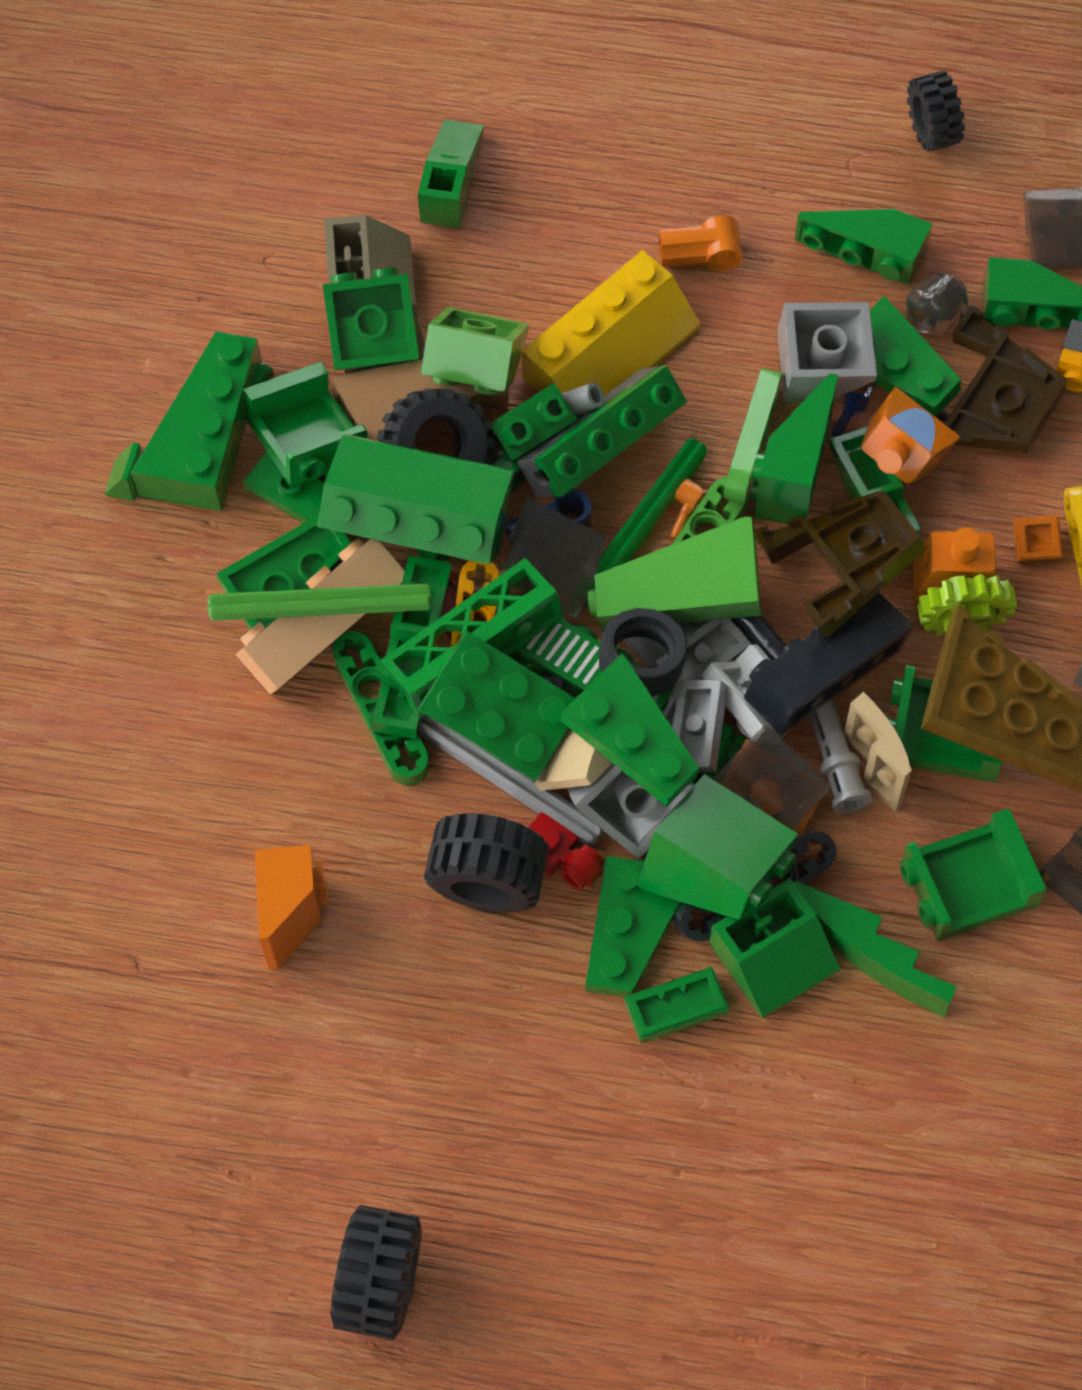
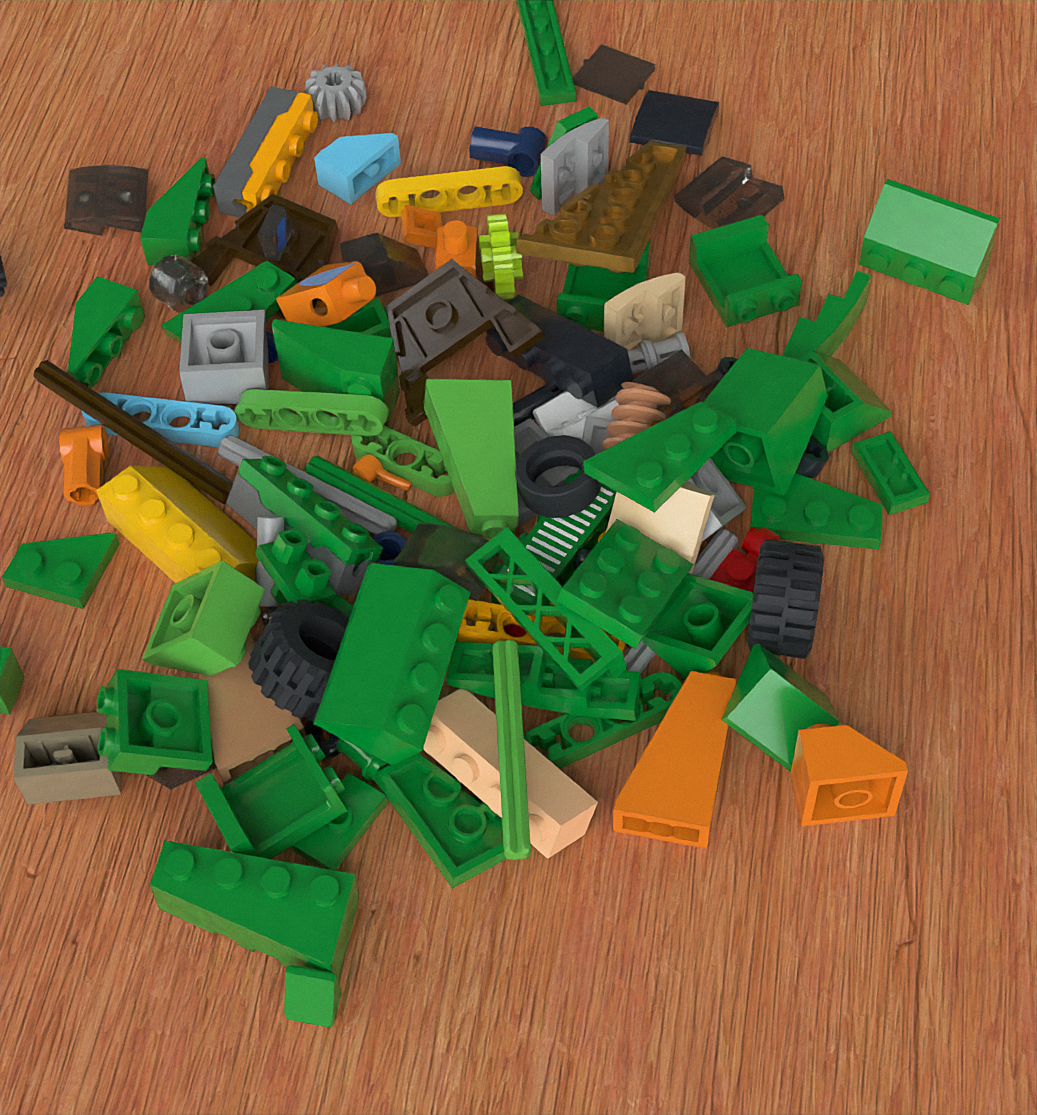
camera: 90 degrees left, 10 degrees down
(325, 774) = (679, 772): none -> orange slope
(376, 859) = (774, 704): none -> green slope
(473, 782) = (699, 624): none -> green slope
(578, 243) = (61, 568): none -> green wing
(669, 442) = (356, 511): none -> light grey axle
(701, 720) = (635, 412): none -> nougat piece
(733, 278) = (134, 431): none -> dark brown axle
(759, 308) = (165, 410): none -> medium azure beam
(971, 492) = (385, 261): none -> clear smoke slope
(994, 381) = (275, 232): none -> clear smoke tile
(1002, 1076) = (929, 241): none -> slope

